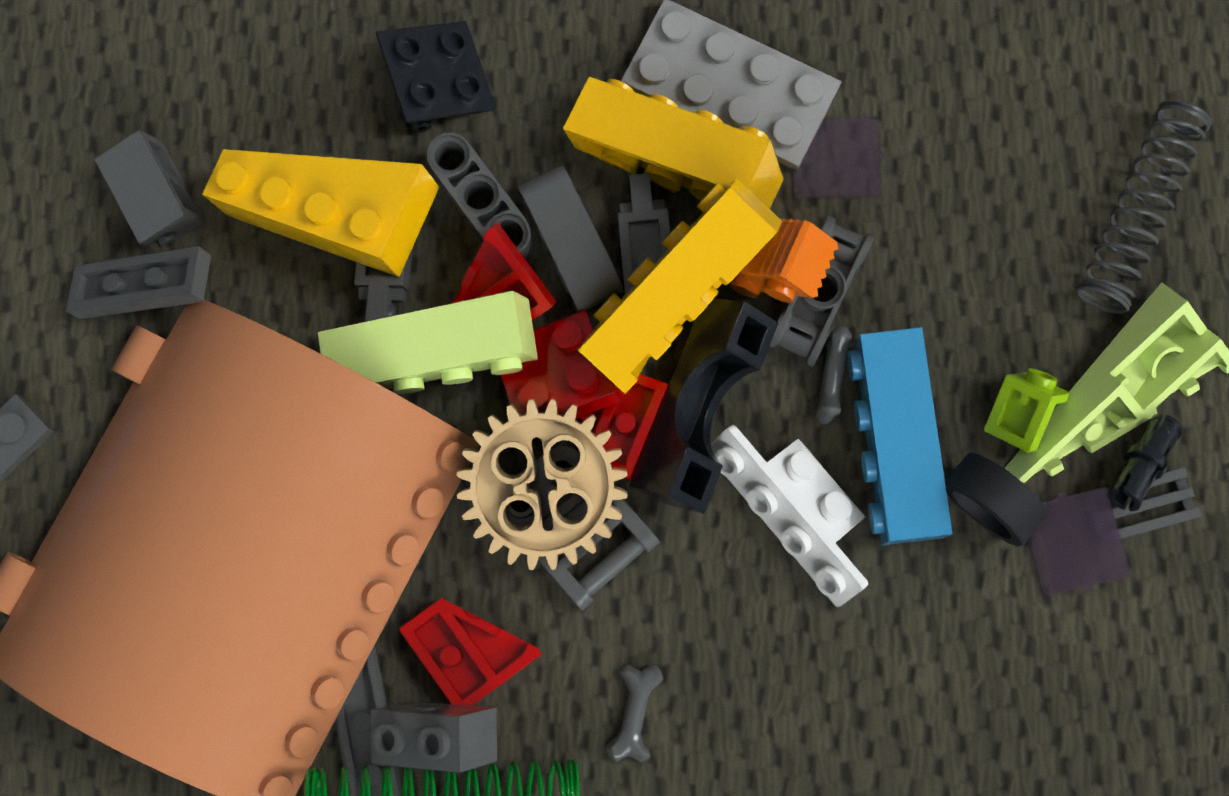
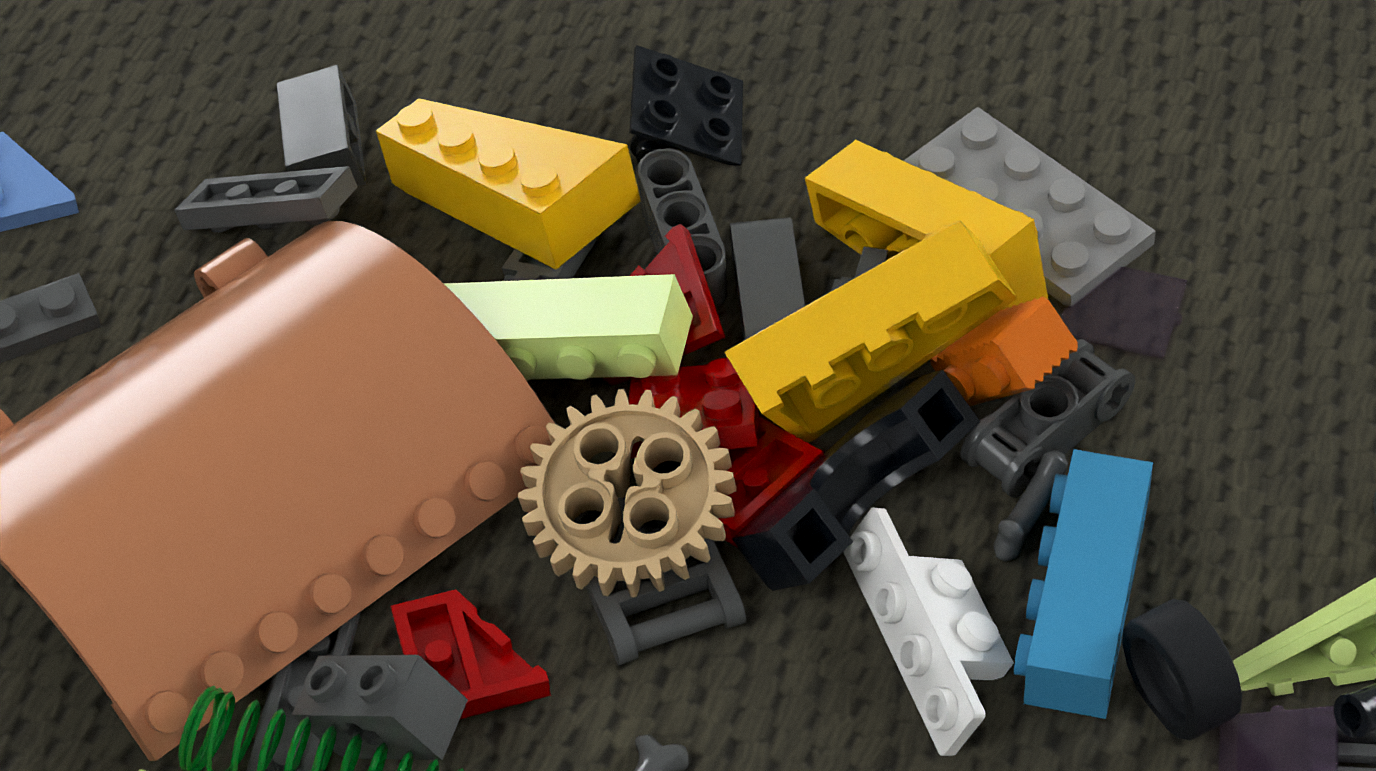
camera: 20 degrees right, 30 degrees down
(1025, 408) = (1259, 597): lime bracket -> none

